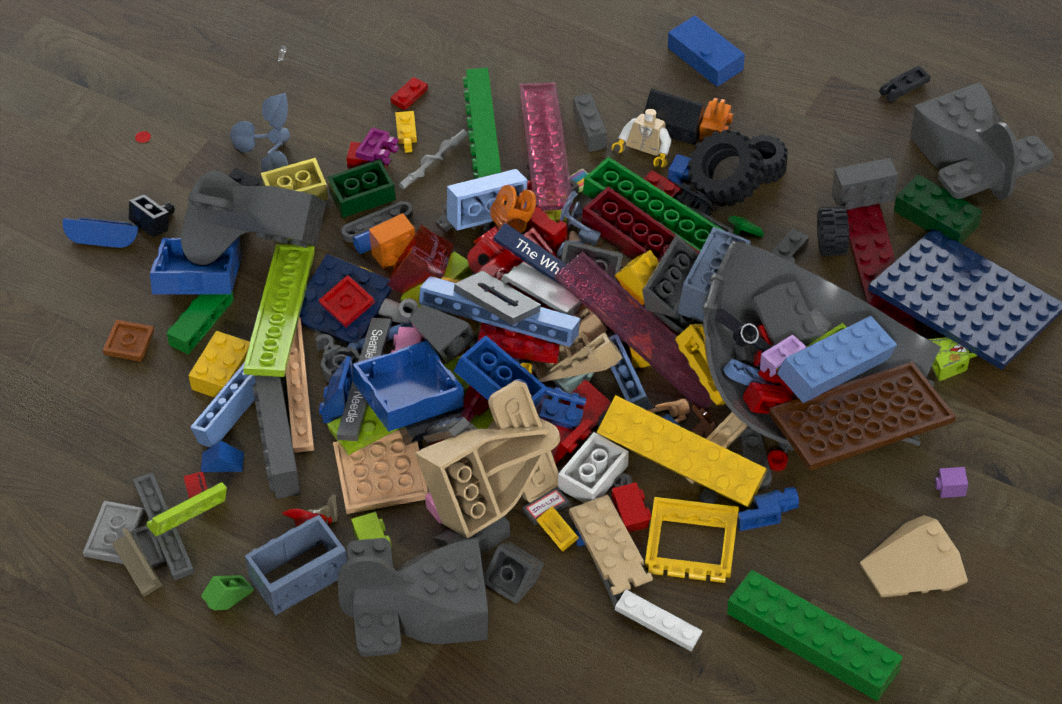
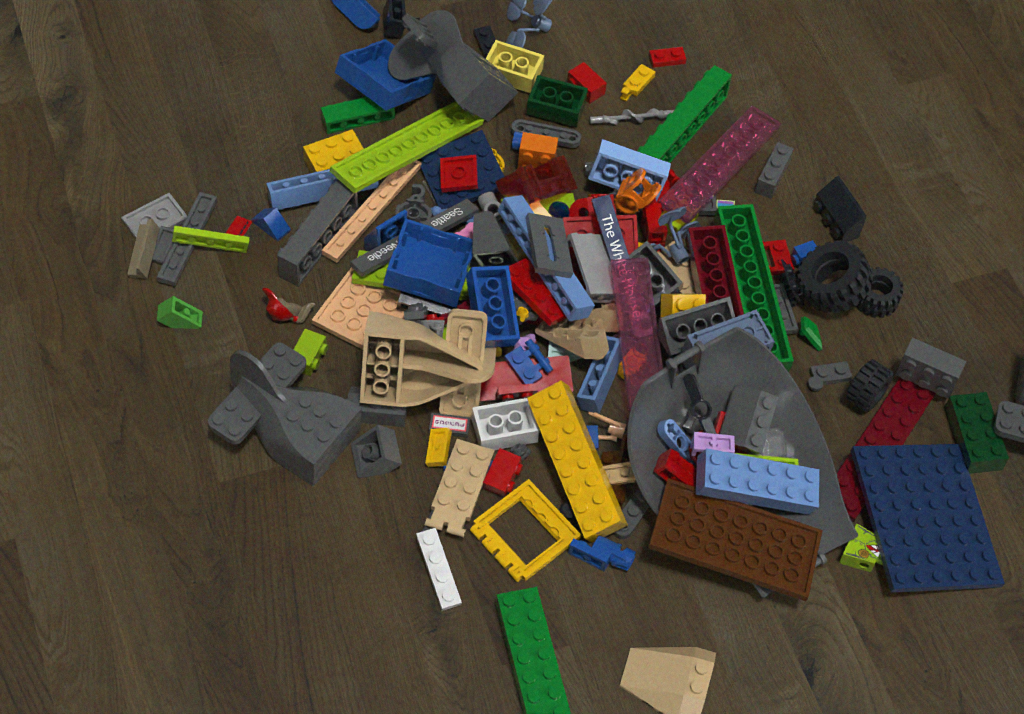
camera: 35 degrees right, 5 degrees up
(128, 340) = (296, 95): dark orange plate -> none
(304, 580) = (223, 345): sand blue hose -> none
(372, 146) = (595, 73): magenta plate -> none
(462, 271) = (559, 210): none -> clear blue hat
(646, 135) = (806, 211): torso -> none
(706, 51) = (922, 179): blue brick -> none
(715, 118) = (872, 237): orange brick -> none
(777, 460) = (647, 523): red tile -> none
(951, 482) = (761, 645): medium lavender brick -> none

